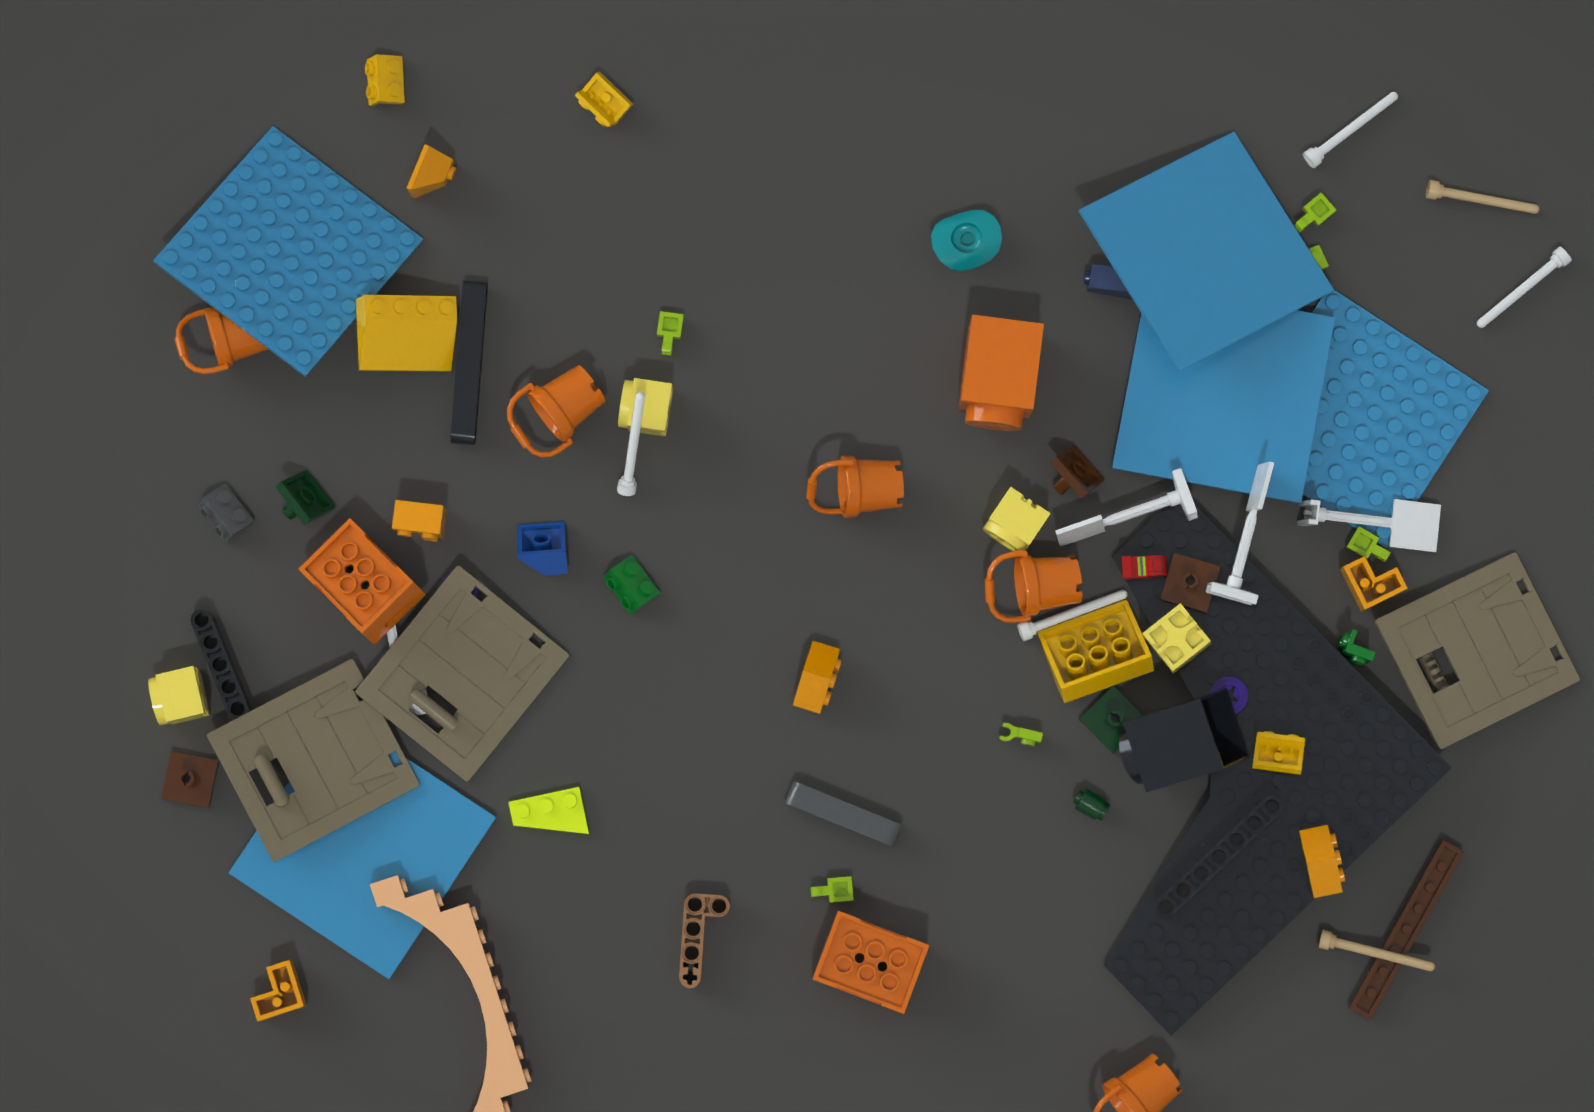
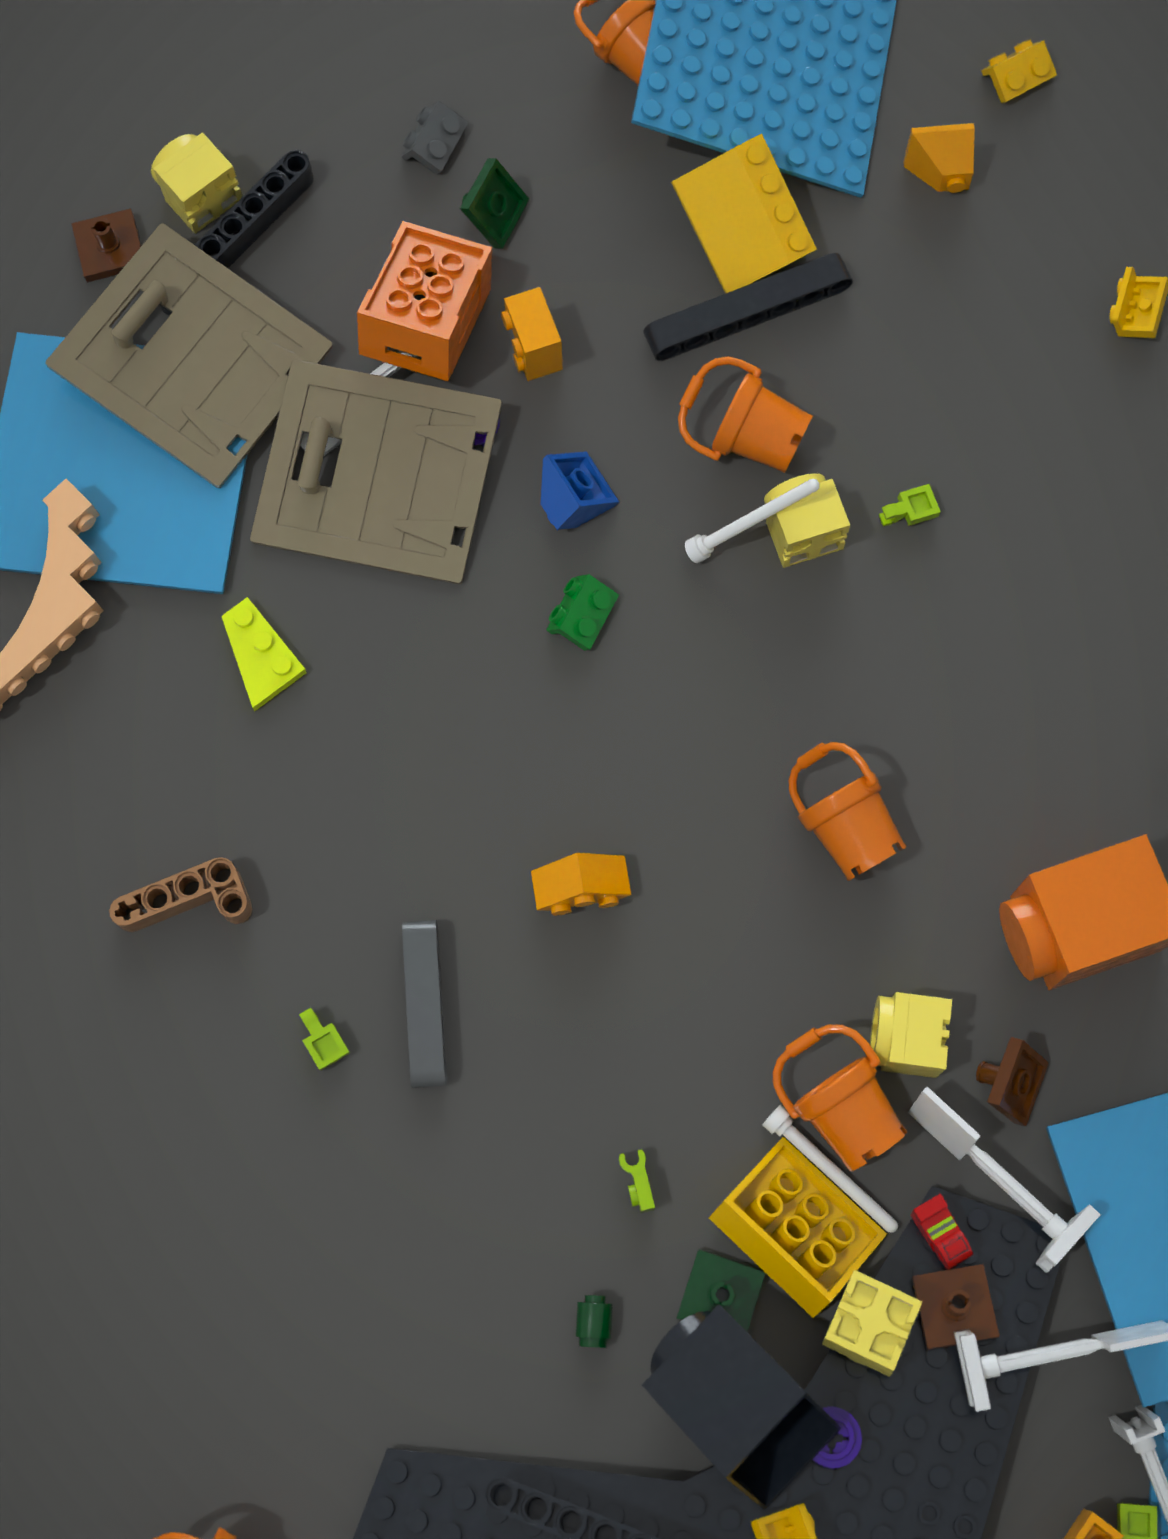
camera: 70 degrees right, 10 degrees down
(854, 936) = (272, 1123): orange container -> none

